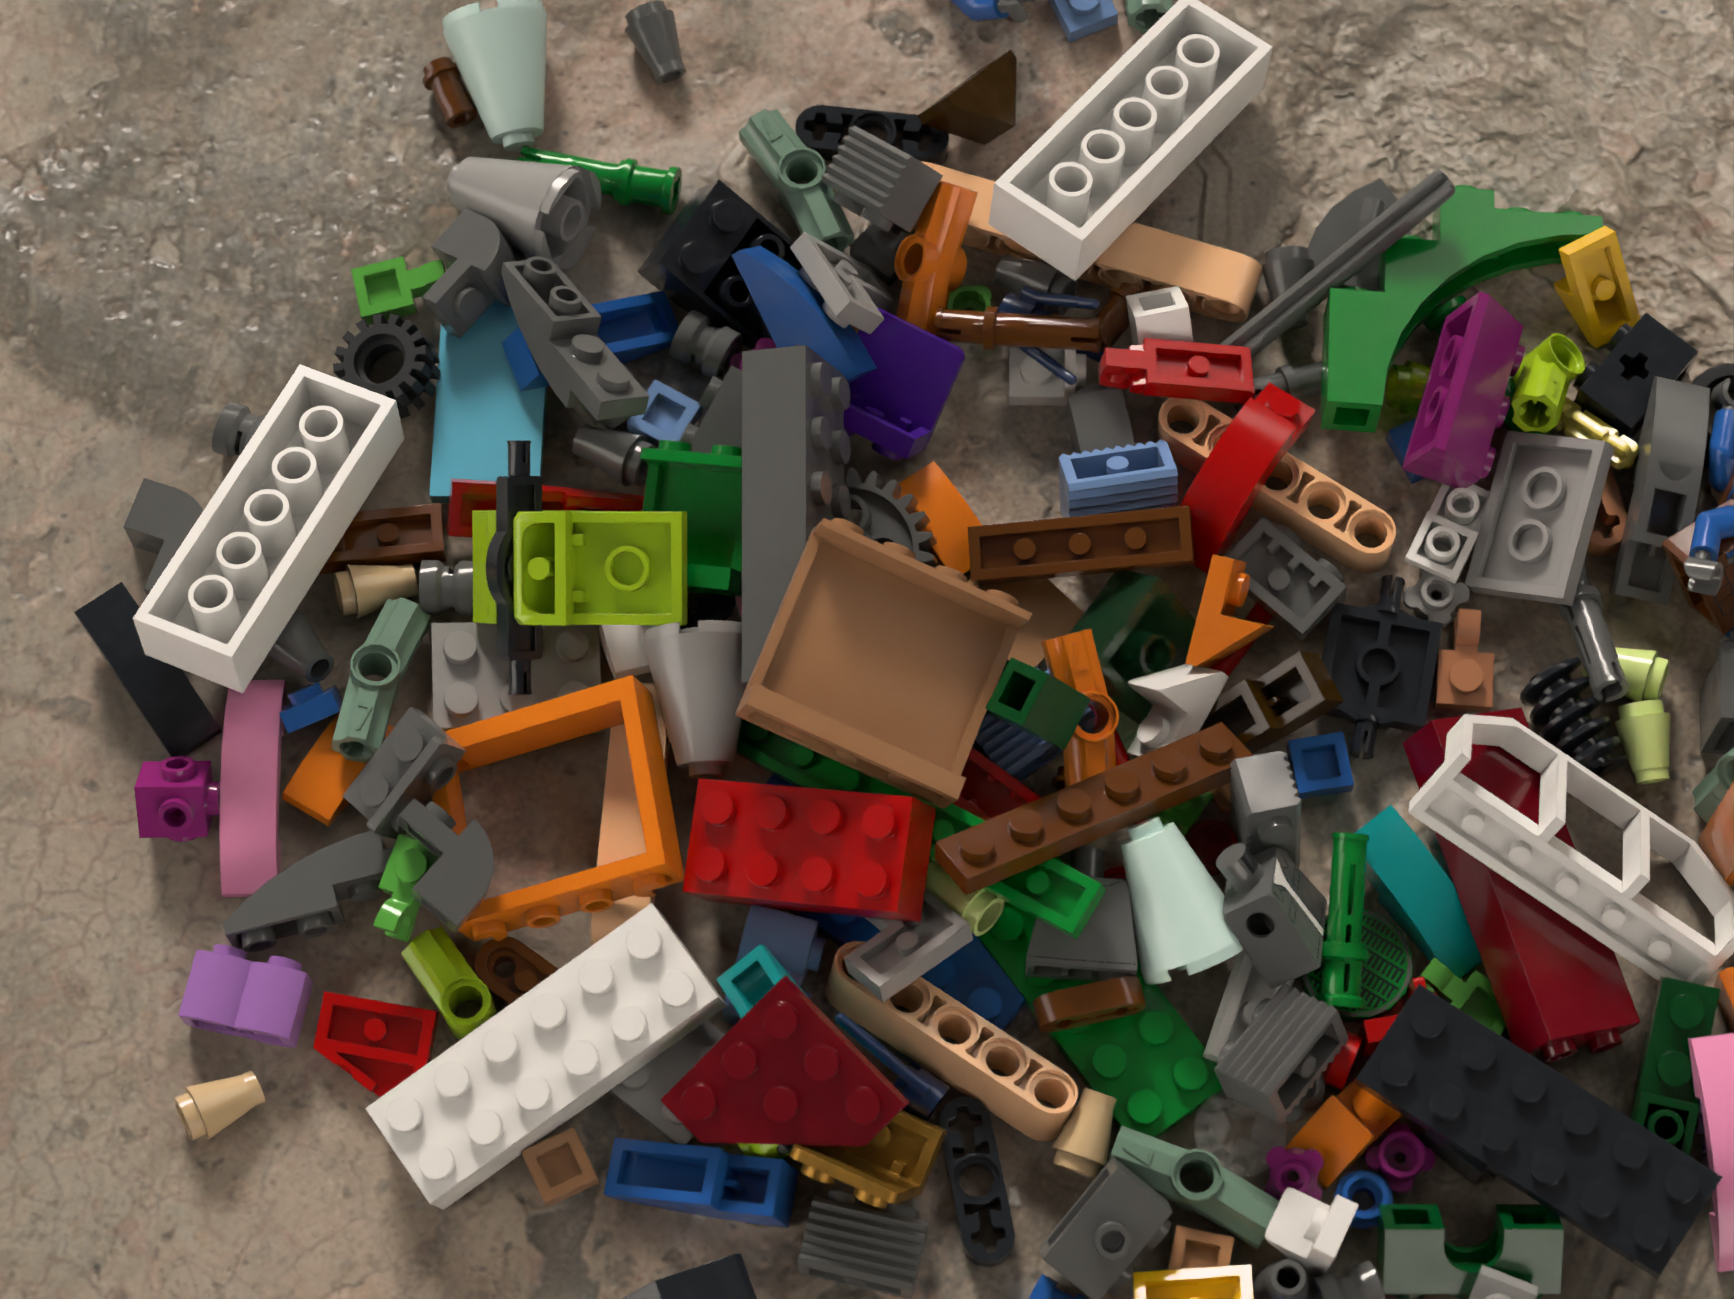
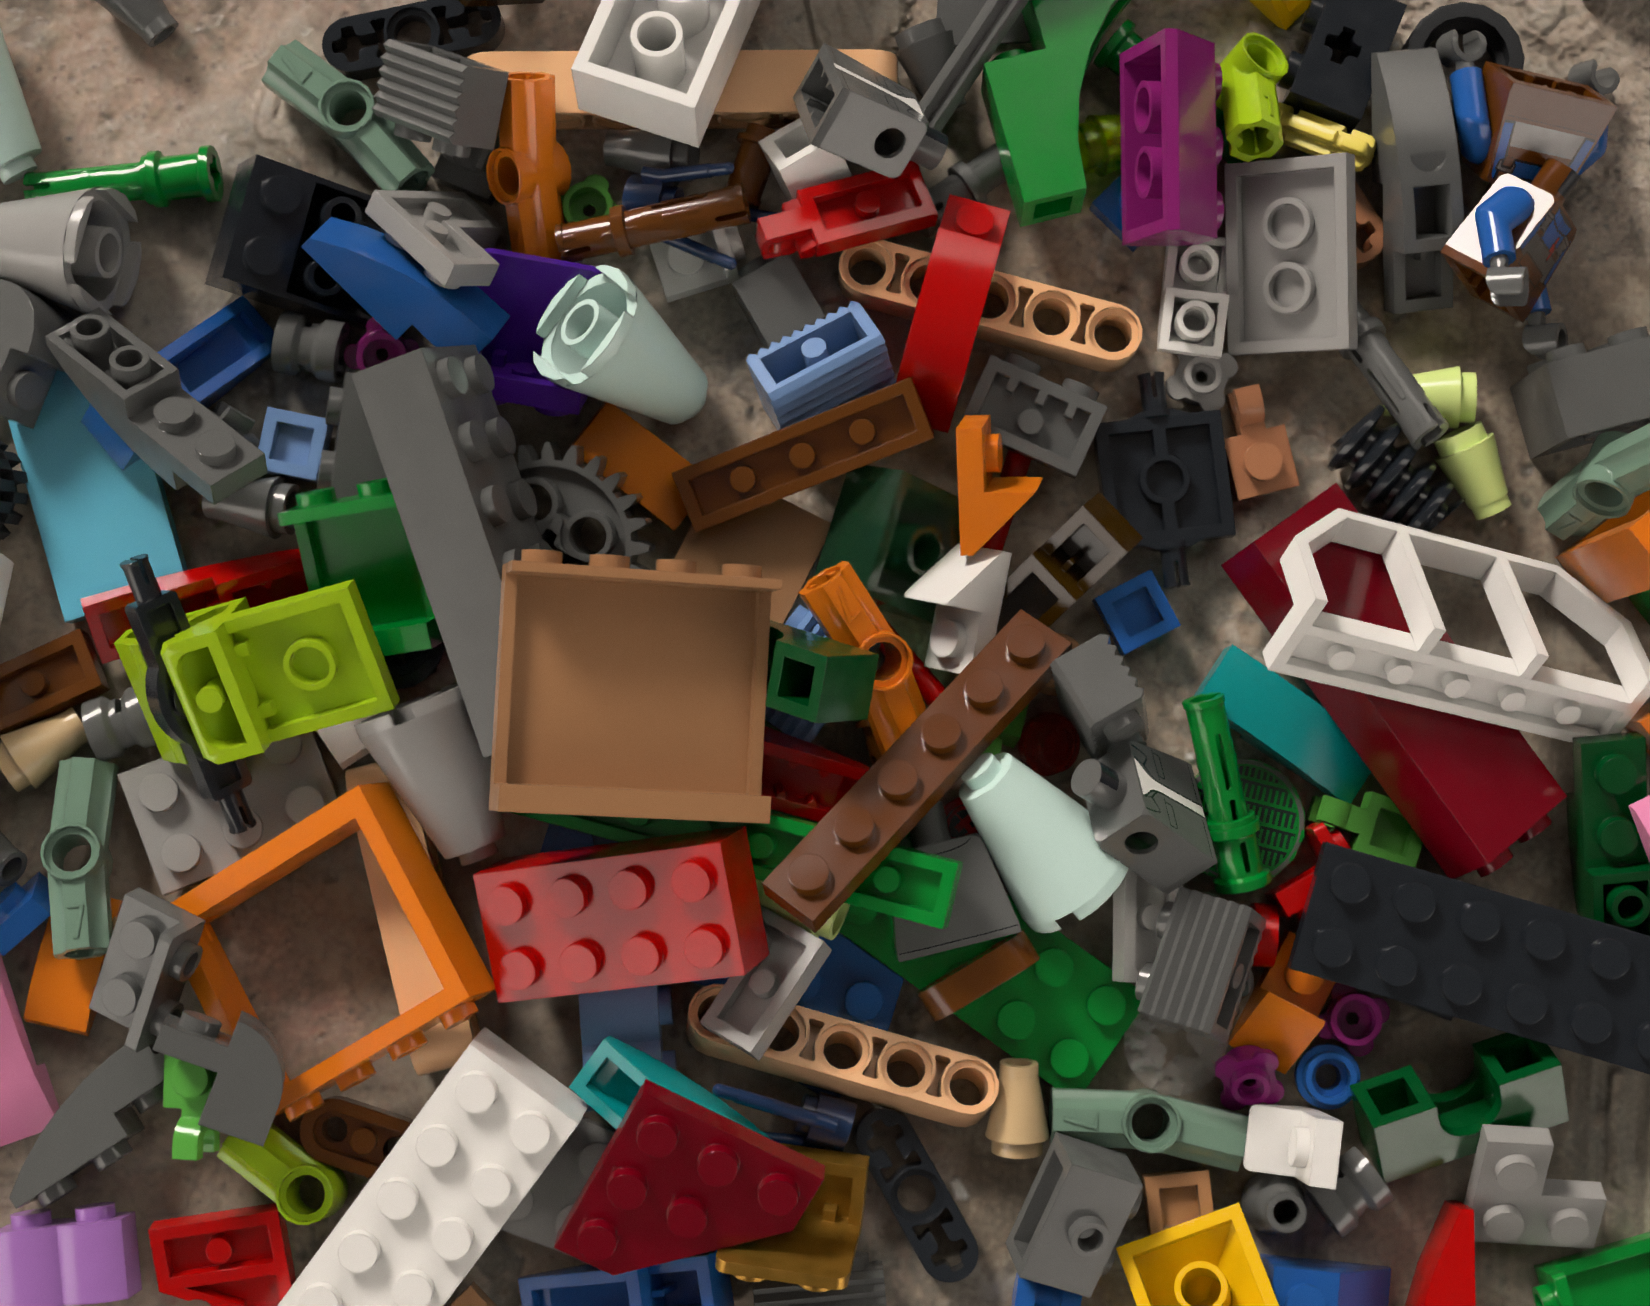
camera: 20 degrees left, 15 degrees up
(959, 418) = (618, 349): none -> light aqua cone
(1206, 282) = (865, 116): none -> dark grey torso

